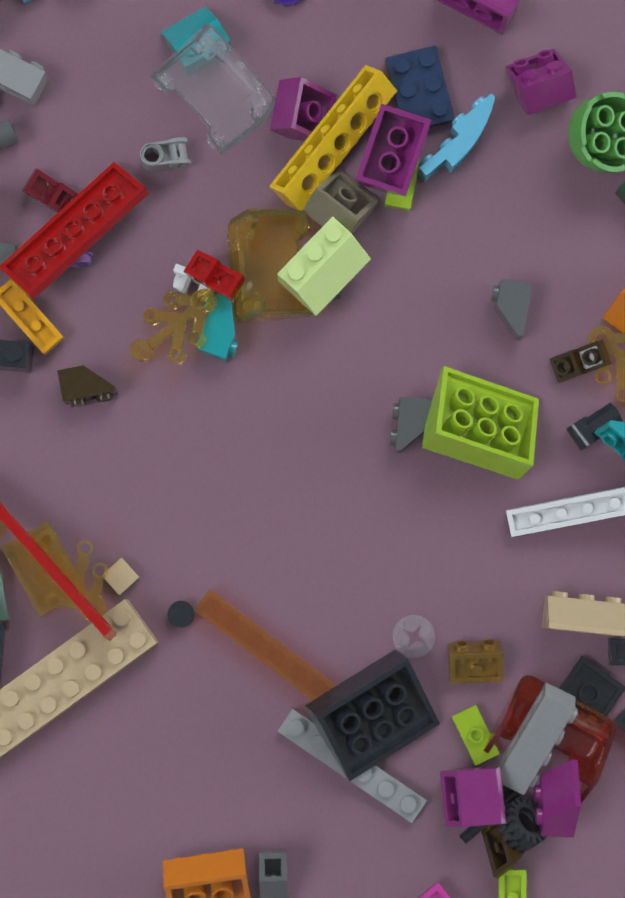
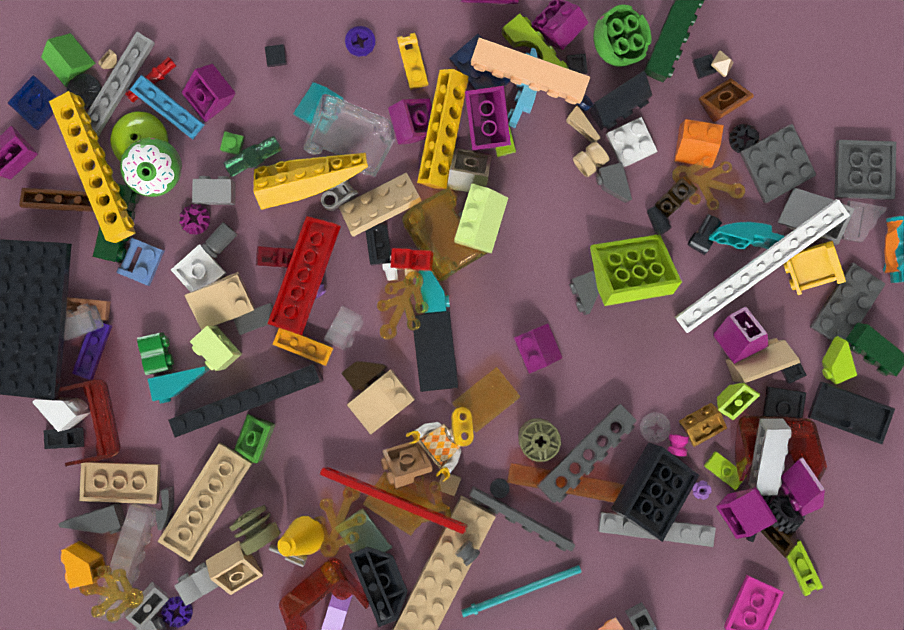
camera: 25 degrees left, 5 degrees up
(69, 31) = (232, 143): none -> bright green plate
(79, 519) = (405, 463): none -> medium nougat plate
(85, 57) = (252, 156): none -> clear green piece
(89, 319) = (344, 327): none -> clear brick
(89, 432) = (381, 401): none -> tan slope
(98, 666) = (467, 553): none -> dark grey wheel
(133, 113) = (303, 177): none -> yellow wedge
(134, 520) = (439, 445): none -> torso
(140, 757) = (475, 608): none -> teal bar
(171, 509) = (462, 426): none -> yellow plate
(183, 238) = (378, 245): none -> black hinge
(186, 405) = (435, 352): none -> black tile
(193, 674) = (527, 522): none -> dark grey plate
(209, 190) = (379, 204): none -> tan plate
(219, 494) = (487, 398): none -> clear yellow plate
(263, 590) = (532, 430): none -> olive wheel
(316, 462) = (537, 348): none -> magenta slope
(338, 41) = (412, 62): none -> yellow plate
(373, 596) = (603, 428): none -> dark grey brick
(425, 744) = (701, 485): none -> medium lavender plate
(431, 670) = (678, 443): none -> dark pink wheel
(472, 118) = (529, 71): none -> light nougat brick
(486, 71) = (520, 33): none -> lime arch
(497, 263) = (593, 157): none -> tan wheel
(506, 212) = (582, 125): none -> tan slope
(522, 189) = (585, 104): none -> dark blue tile
(530, 647) = (736, 399): none -> lime slope
(538, 142) = (577, 63): none -> black tile
(545, 382) = (659, 221): none -> black cone
(559, 269) = (631, 142): none -> white plate
(569, 211) = (621, 101): none -> black slope
(576, 571) = (741, 335): none -> magenta slope

